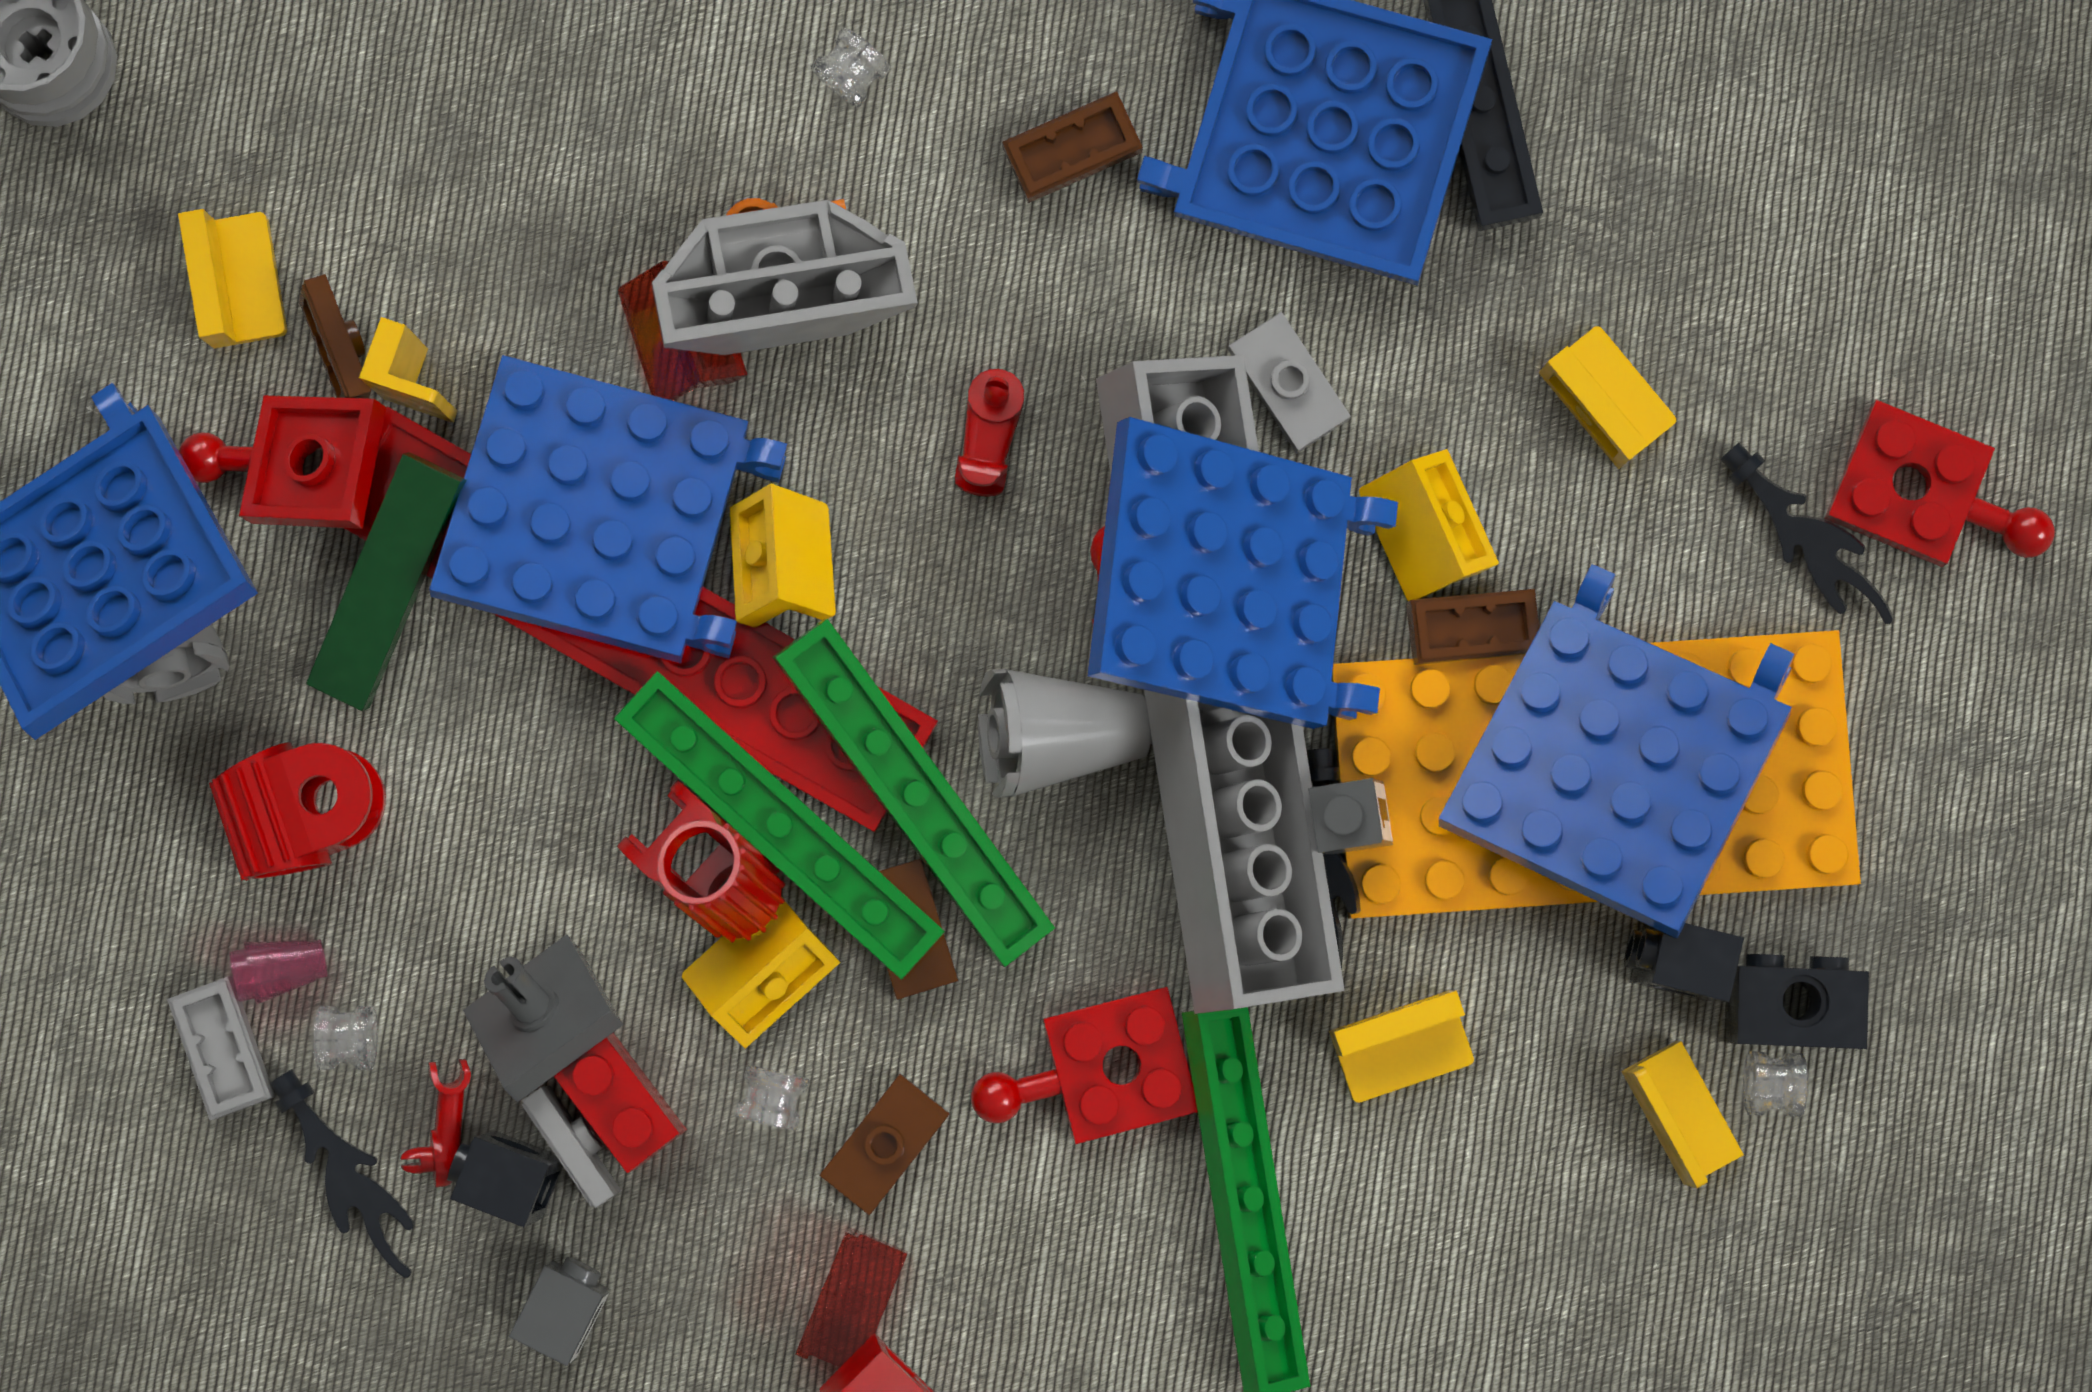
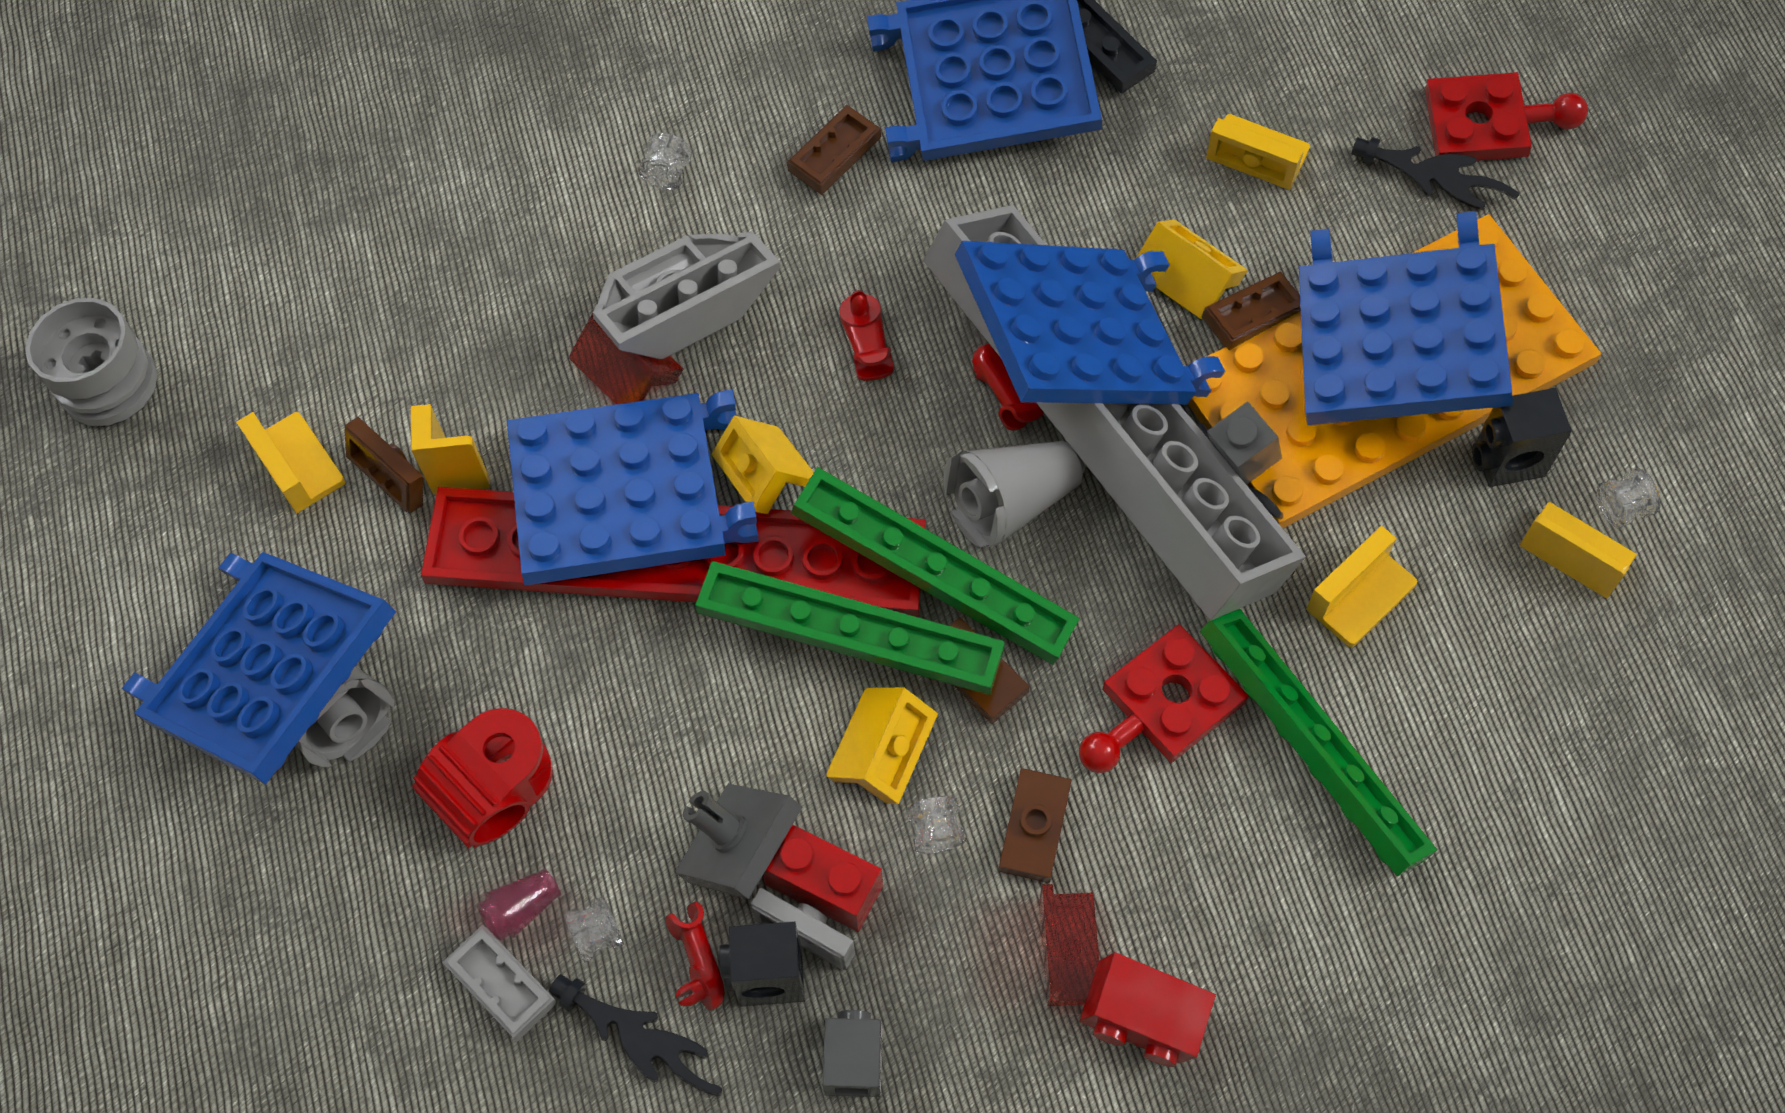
camera: 20 degrees left, 20 degrees down
(285, 435) = (376, 530): red plate -> none
(386, 581) = (486, 597): dark green tile -> none
(742, 903) = (837, 690): red piece -> none
(1289, 383) = (1055, 222): light grey plate -> none
(1835, 1012) = (1637, 435): black brick -> none

